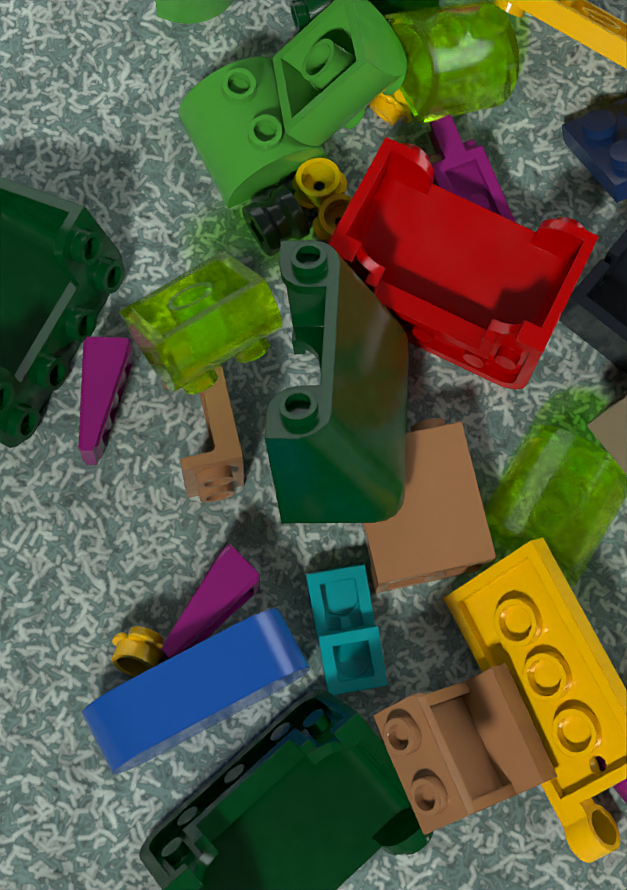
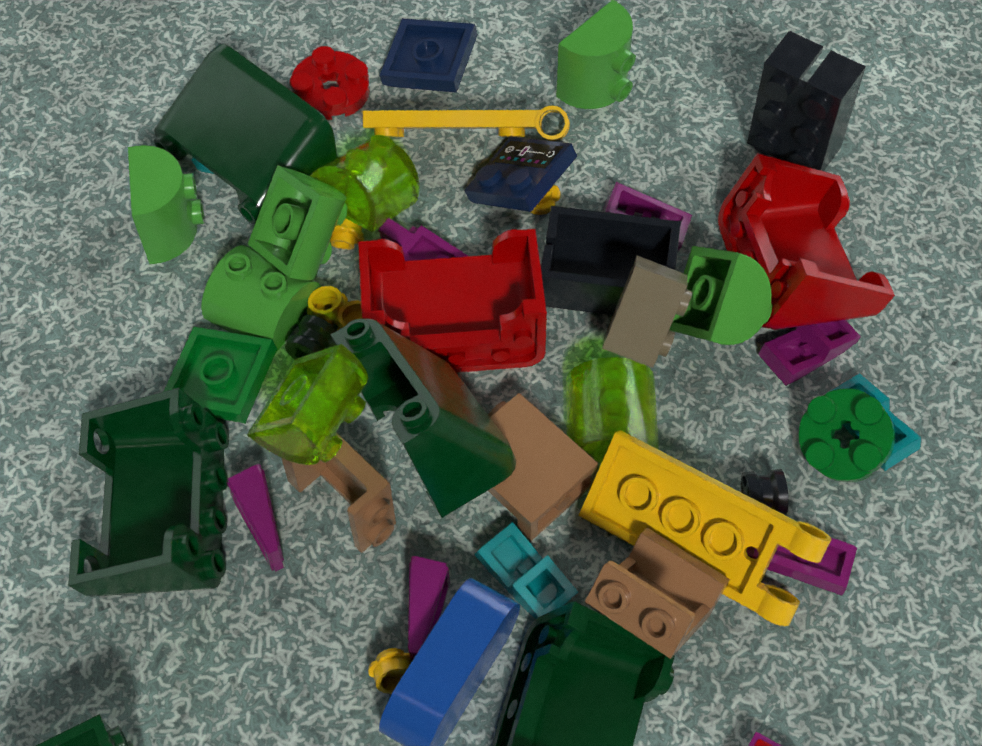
camera: 25 degrees left, 15 degrees down
(154, 199) = (223, 371): none -> green plate

